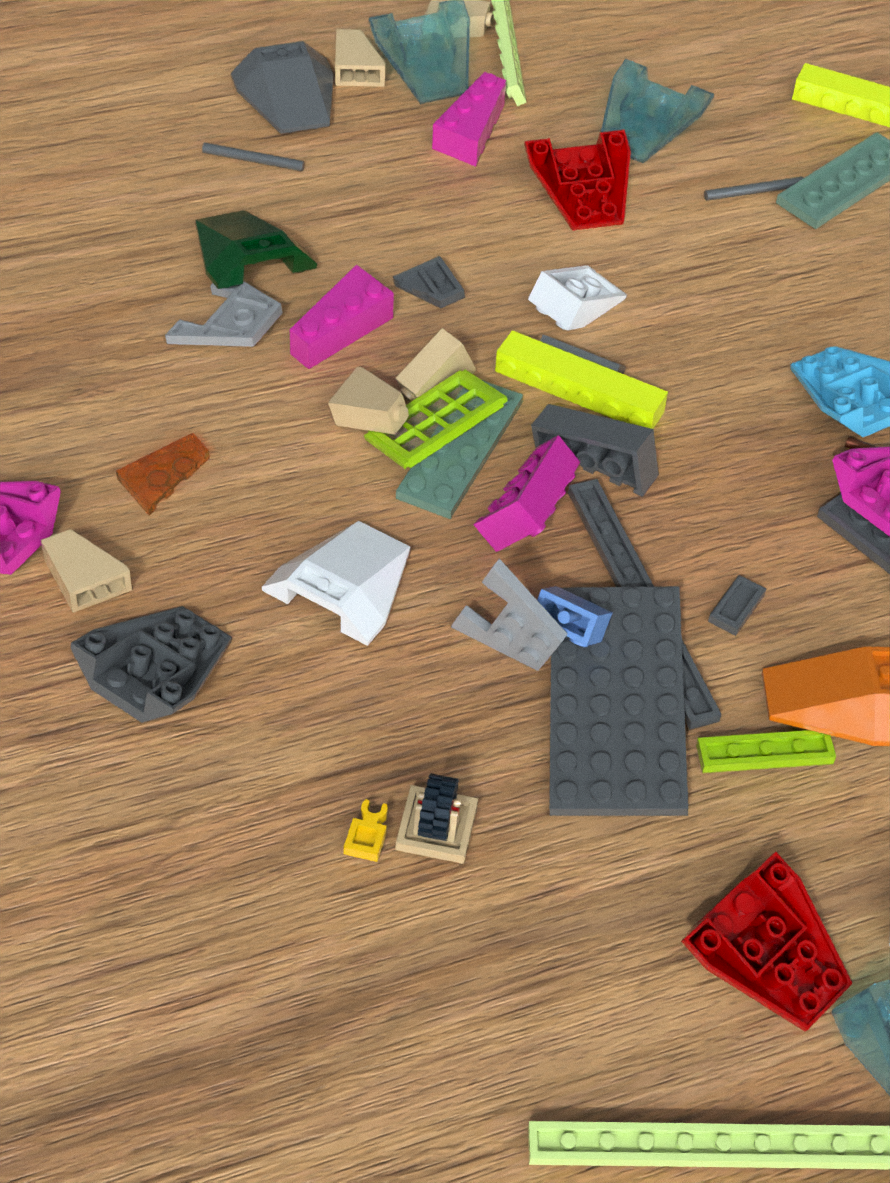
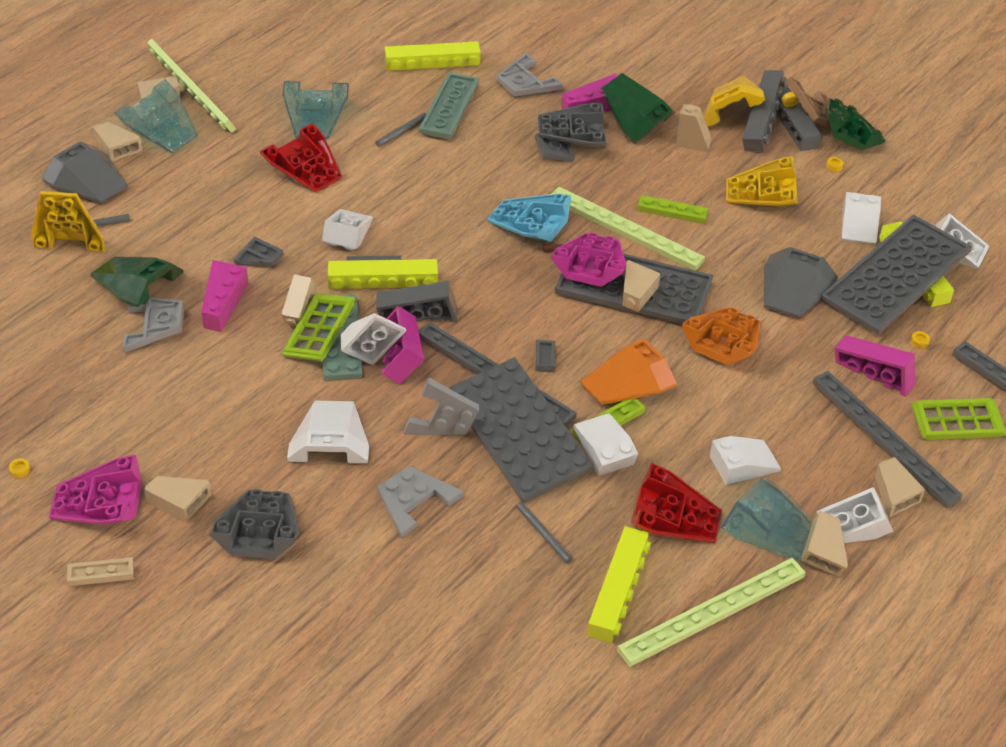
camera: 30 degrees left, 5 degrees down
(161, 471) = (179, 424): clear orange wing -> none
(198, 130) = (64, 218): none -> yellow wedge
(367, 835) = (438, 556): yellow plate -> none
(368, 404) = (276, 334): tan slope -> none
(393, 715) = (409, 490): none -> light grey wing
(437, 820) = (471, 530): tan plate -> none
(470, 120) = (213, 153): dark pink wedge -> none
(484, 465) = (370, 338): none -> white slope
(548, 879) = (544, 533): none -> dark grey bar
(579, 618) = (479, 393): medium blue brick -> none
(600, 1020) = (618, 585): none -> neon yellow brick
(732, 785) = (606, 444): none -> white slope

